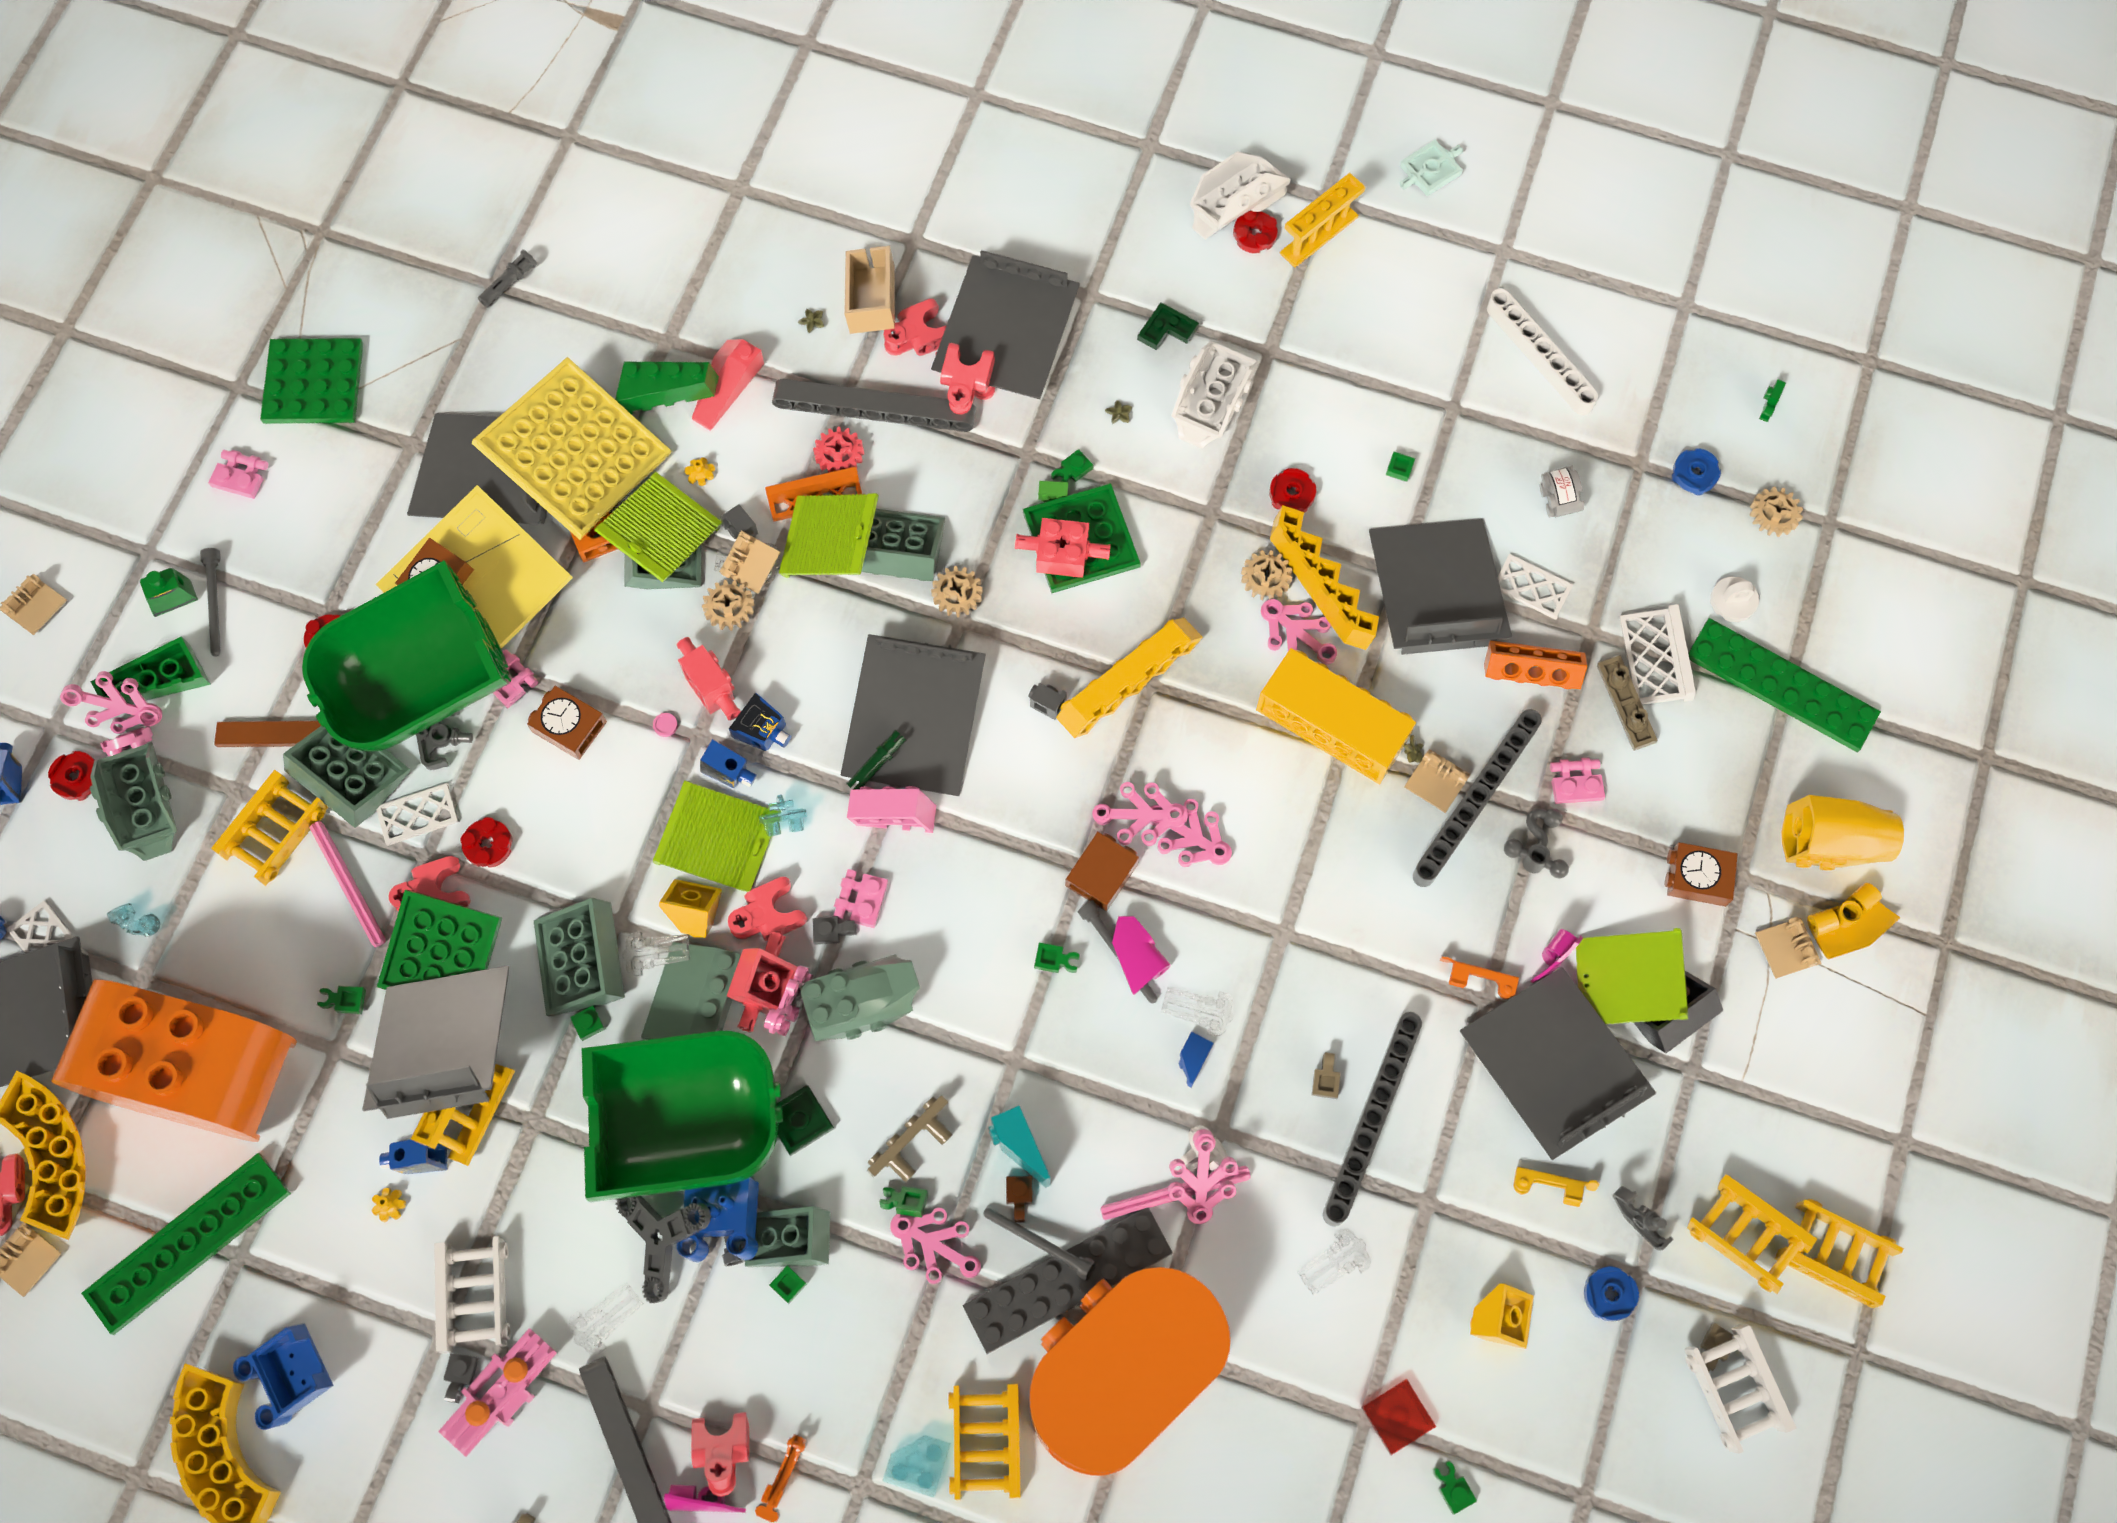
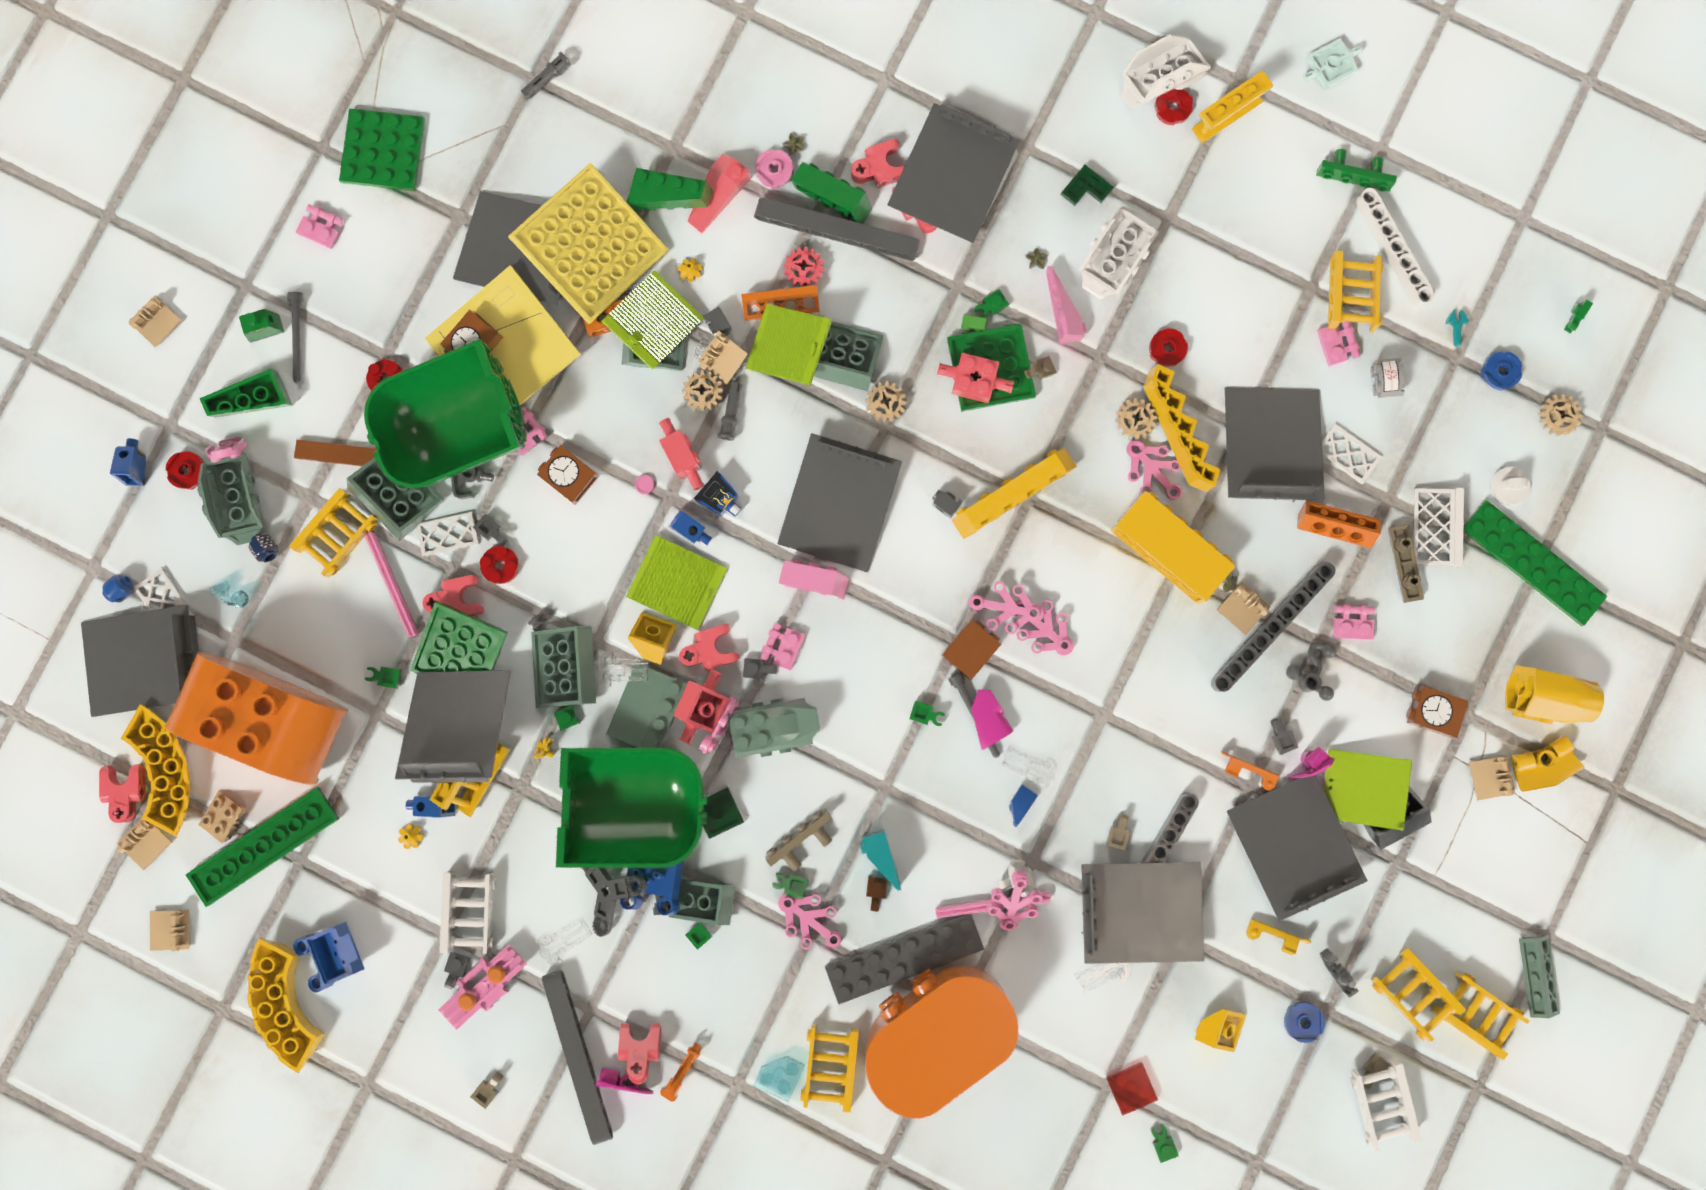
camera: 10 degrees right, 15 degrees up
(60, 1374) = (169, 930): none -> tan hinge
(116, 704) = (238, 426): bright pink plant -> none
(129, 1210) = (221, 817): none -> tan hinge
(177, 857) = (263, 548): none -> dark blue head
(470, 799) = (489, 528): none -> dark grey plate
(540, 906) = (537, 622): none -> dark grey bush
(561, 1065) = (544, 749): none -> yellow plant
(765, 634) = (729, 420): none -> dark grey pin
(792, 360) = (775, 179): none -> bright pink plate
(794, 817) = (729, 571): clear light blue hips -> none
(863, 364) = (832, 192): none -> green wedge
(869, 290) = (844, 127): tan piece -> none
(875, 762) = (812, 533): dark green pin -> none
(965, 379) = (914, 220): coral piece -> none
(1083, 1266) = (915, 952): dark grey piece -> none
(1142, 530) = (1042, 368): none -> dark tan plate
(1163, 467) = (1066, 316): none -> bright pink wedge
(1372, 1173) = (1142, 912): none -> door
(1400, 466) = (1259, 337): green plate -> none
(1476, 279) = (1349, 174): none -> green plate
(1484, 412) = (1337, 298): none -> yellow fence
(1491, 468) = (1333, 344): none -> bright pink plate
(1516, 932) = (1284, 739): none -> dark grey plate
(1639, 422) = (1457, 326): none -> teal bar
(1904, 1192) = (1539, 976): none -> sand green fence

